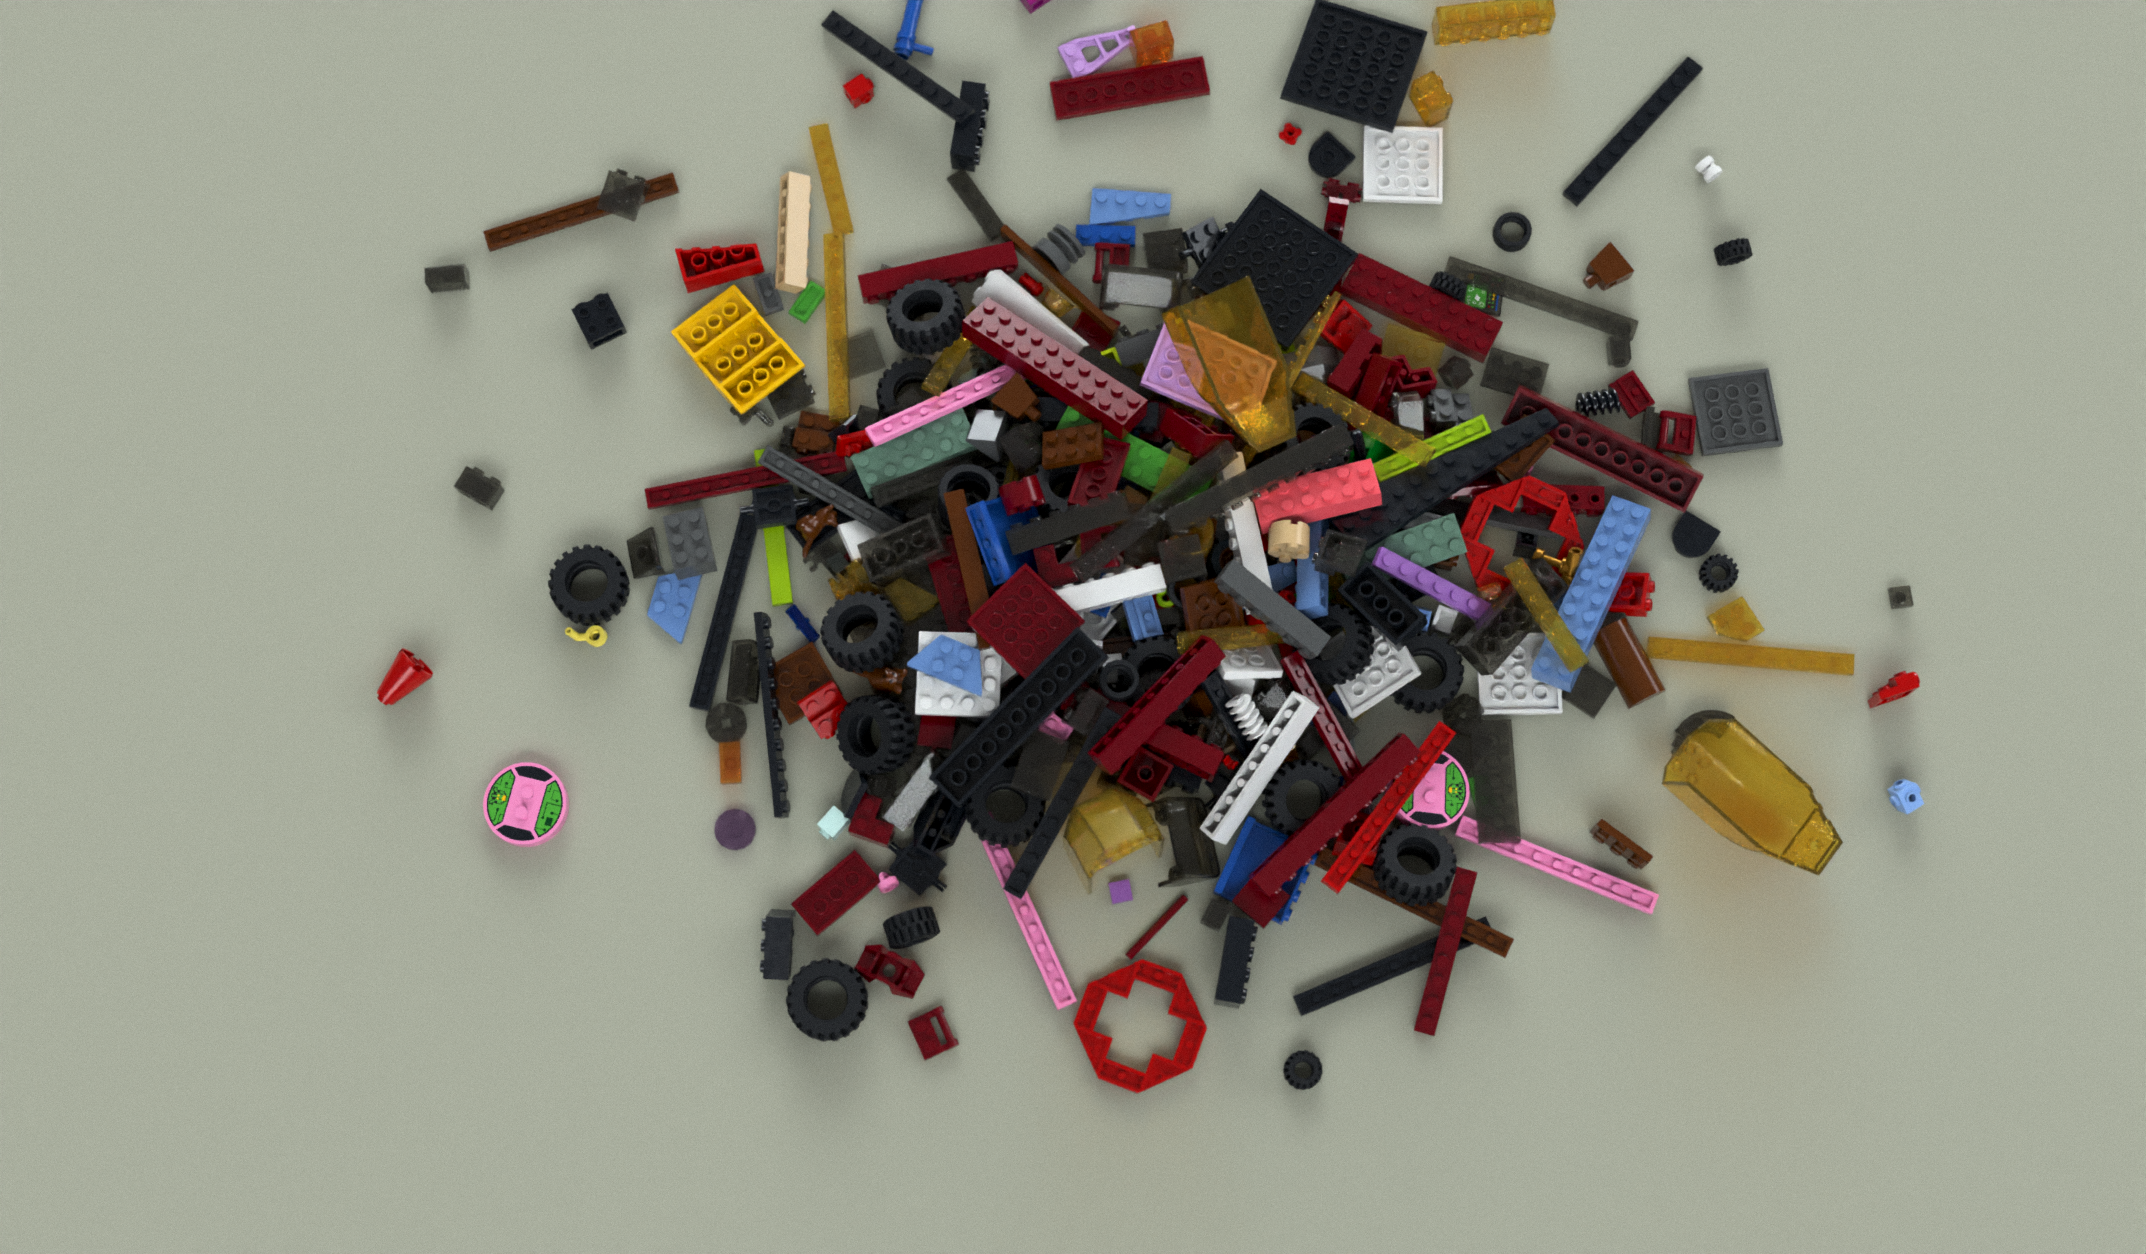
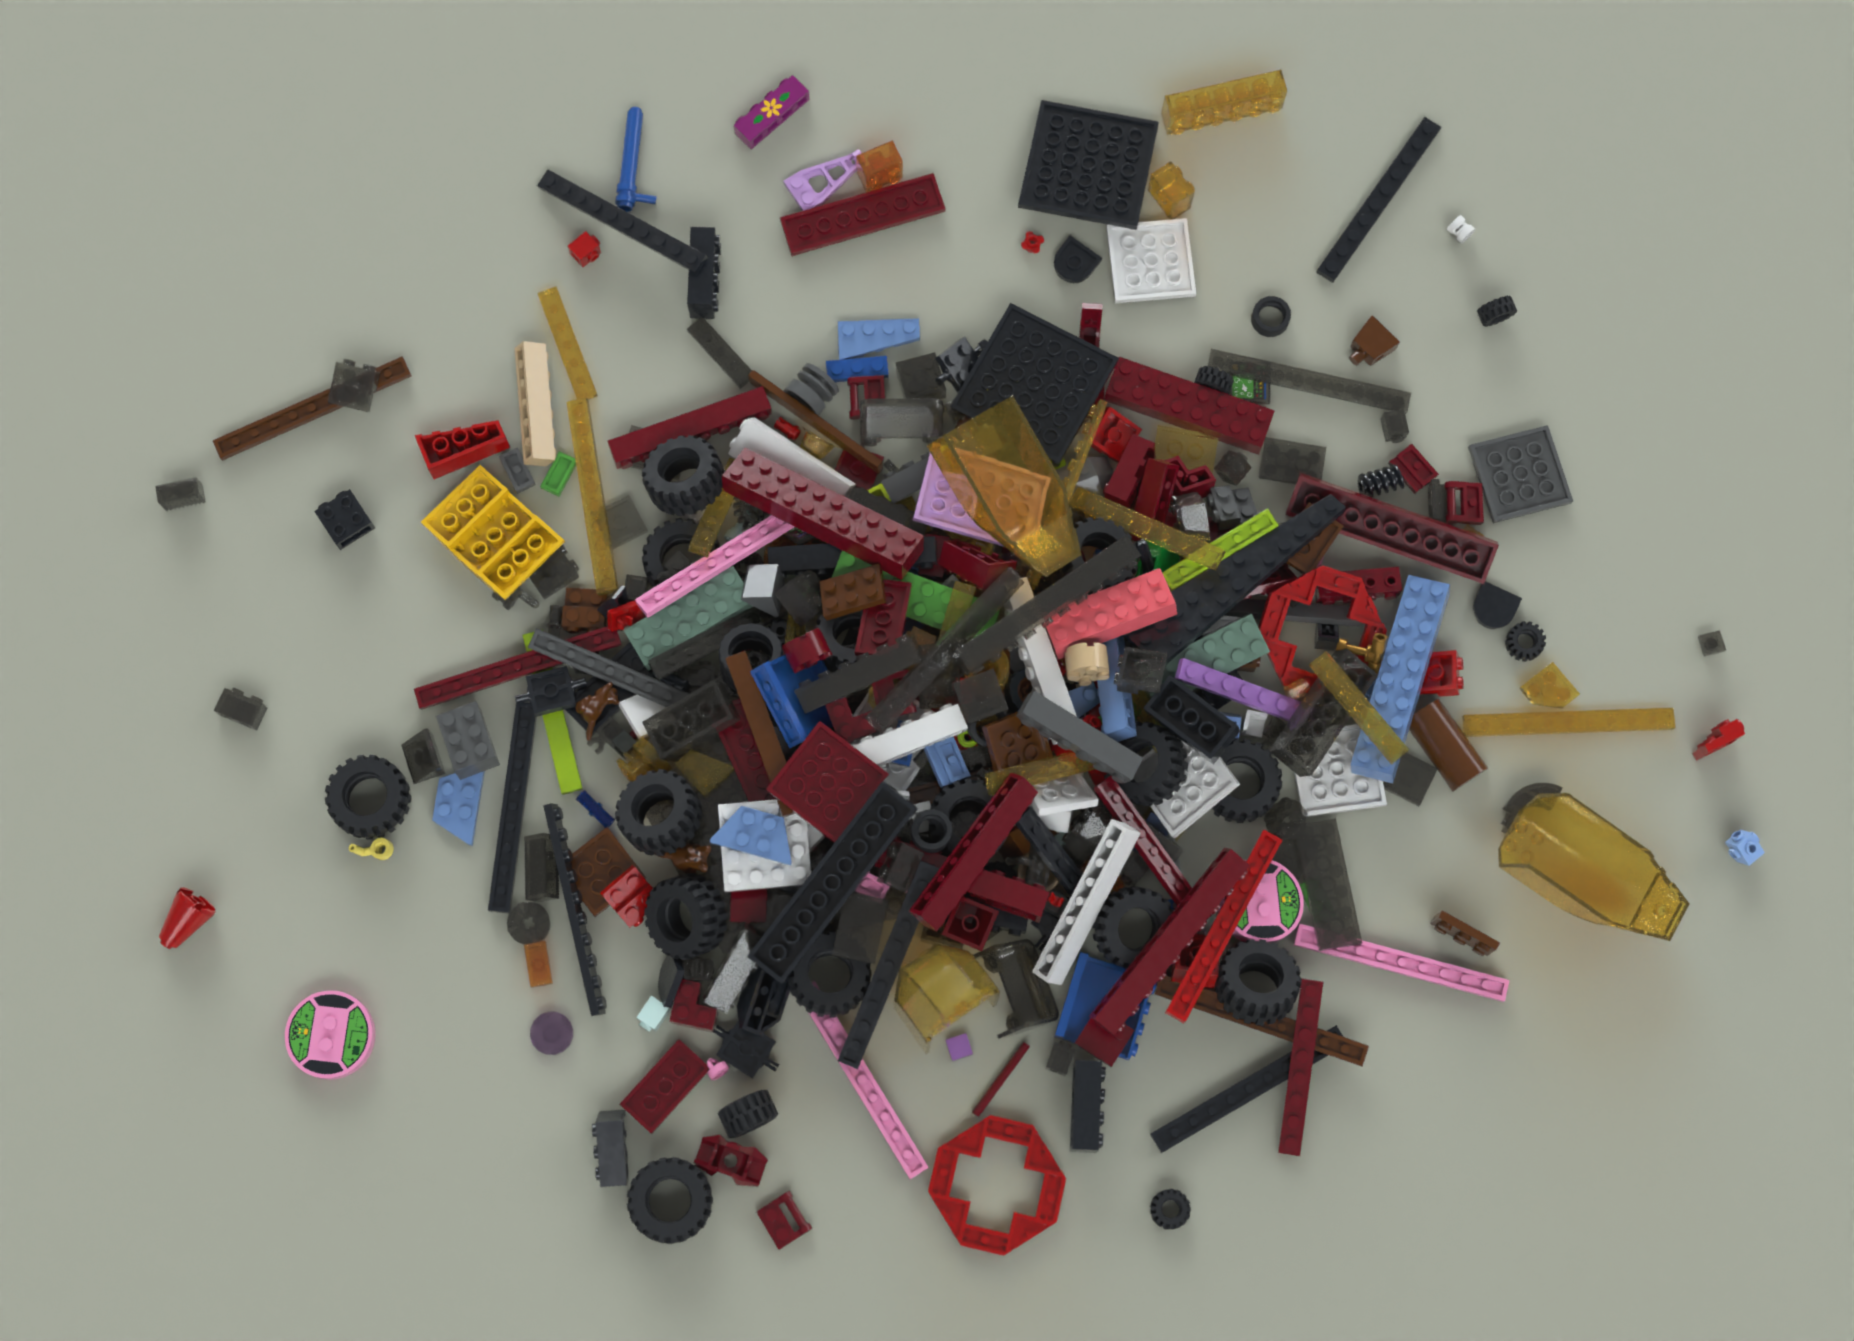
camera: 10 degrees left, 0 degrees up
(1017, 399) = (789, 550): reddish brown torso -> none
(1248, 715) = (1068, 849): white piece -> none
(1349, 192) = (1100, 295): dark red hinge -> none

